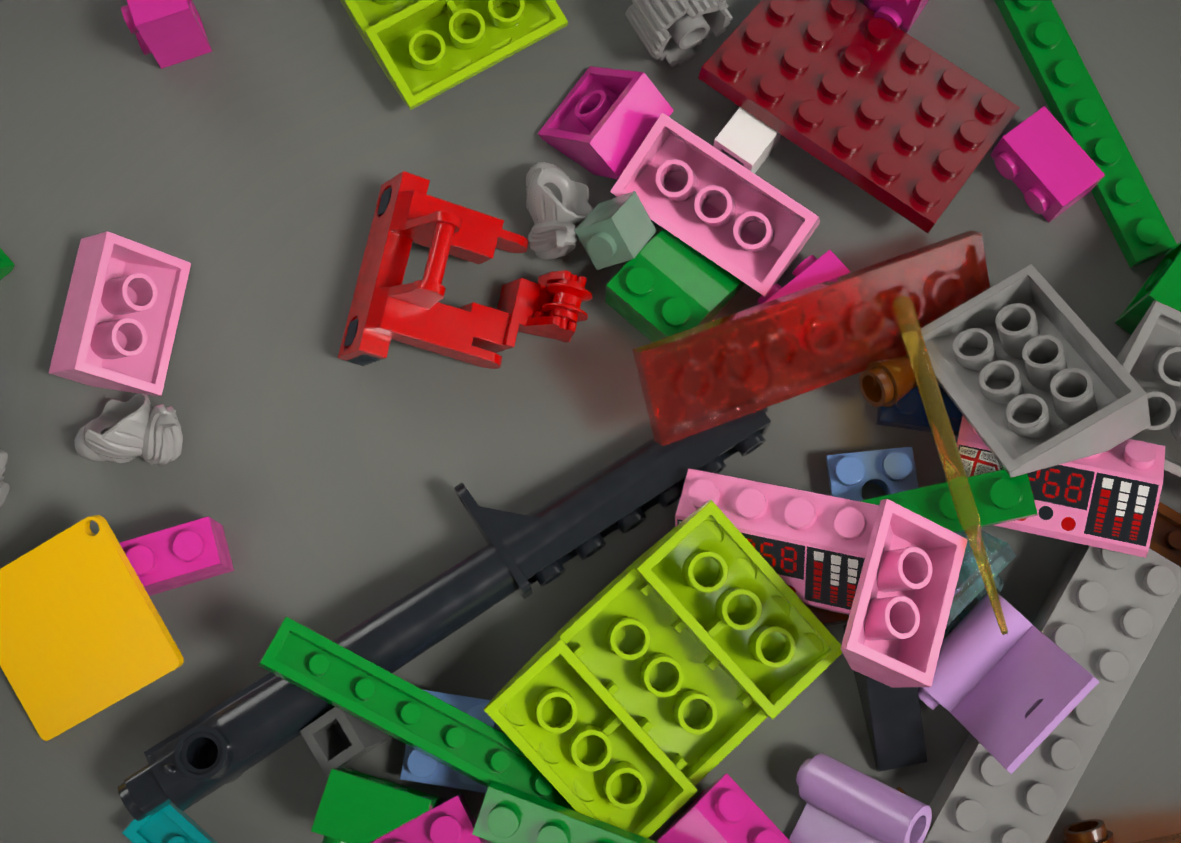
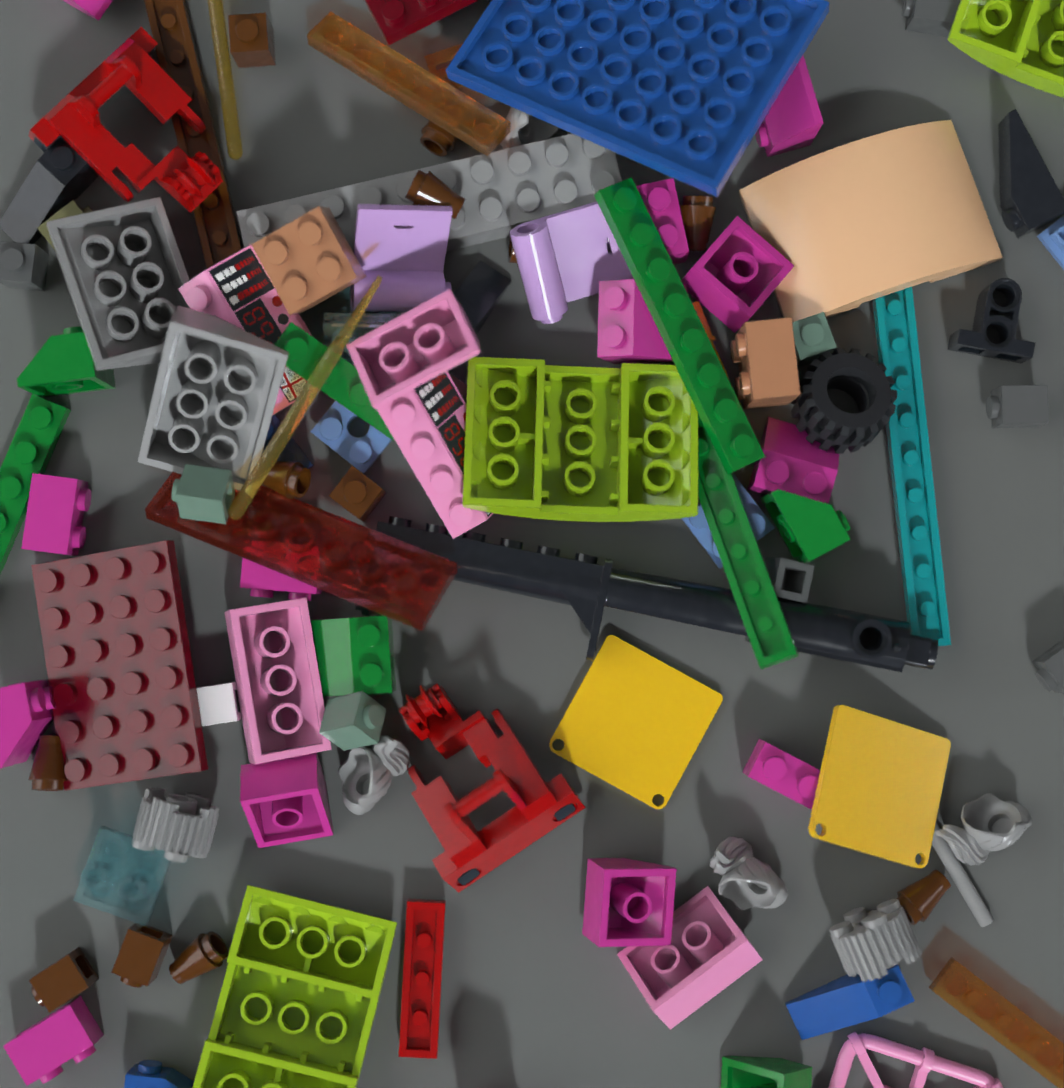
camera: 130 degrees left, 10 degrees up
(218, 309) = (628, 902): none -> dark pink slope
(345, 89) = (422, 978): none -> red plate
(363, 477) = (635, 721): none -> yellow piece
(813, 431) = (357, 494): none -> reddish brown brick
(946, 292) = (204, 493): none -> sand green brick
(1044, 770) = (431, 191): none -> reddish brown cone
(1083, 586) = (308, 260): none -> nougat brick

